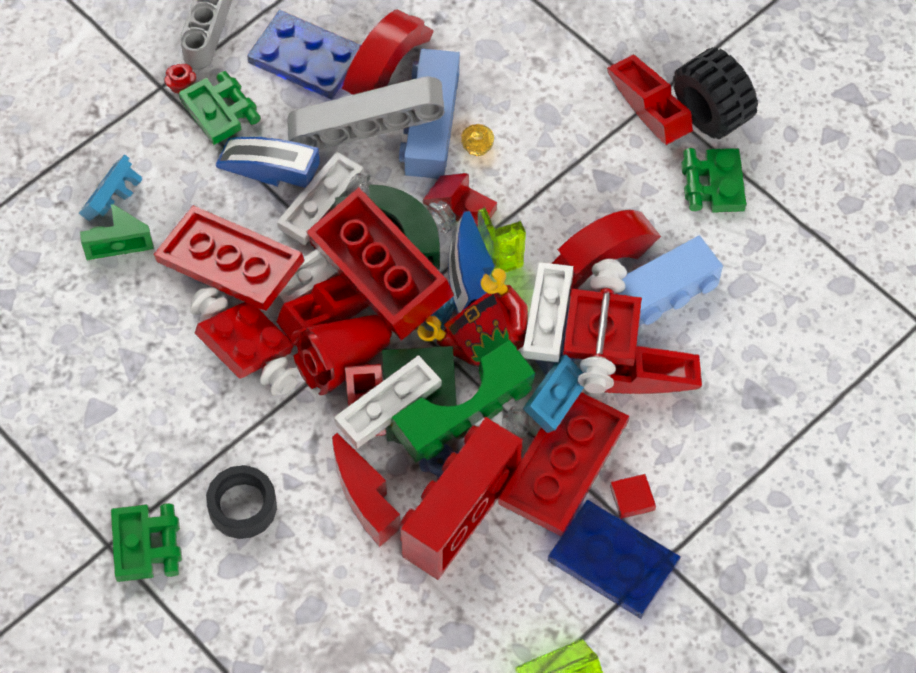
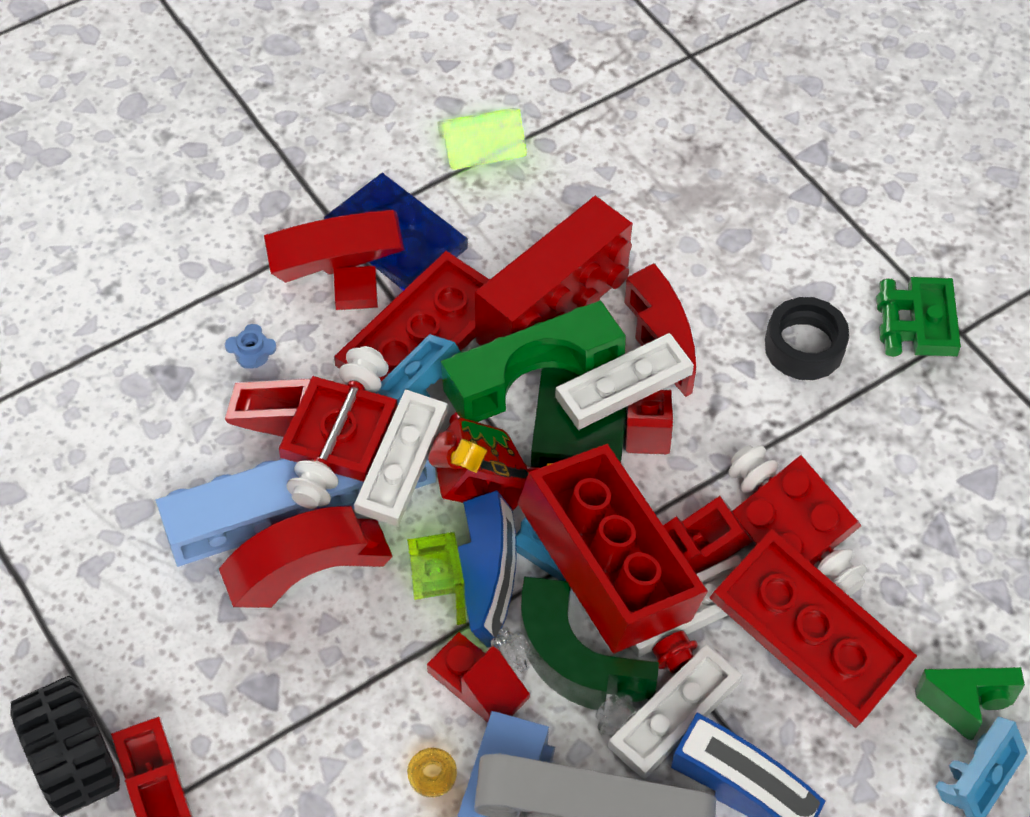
camera: 170 degrees left, 5 degrees down
(336, 345) = (682, 473): red cone -> none
(661, 514) = (333, 244): none -> red slope
(701, 433) = (252, 356): none -> medium blue plate
(724, 177) = (101, 650): green plate -> none

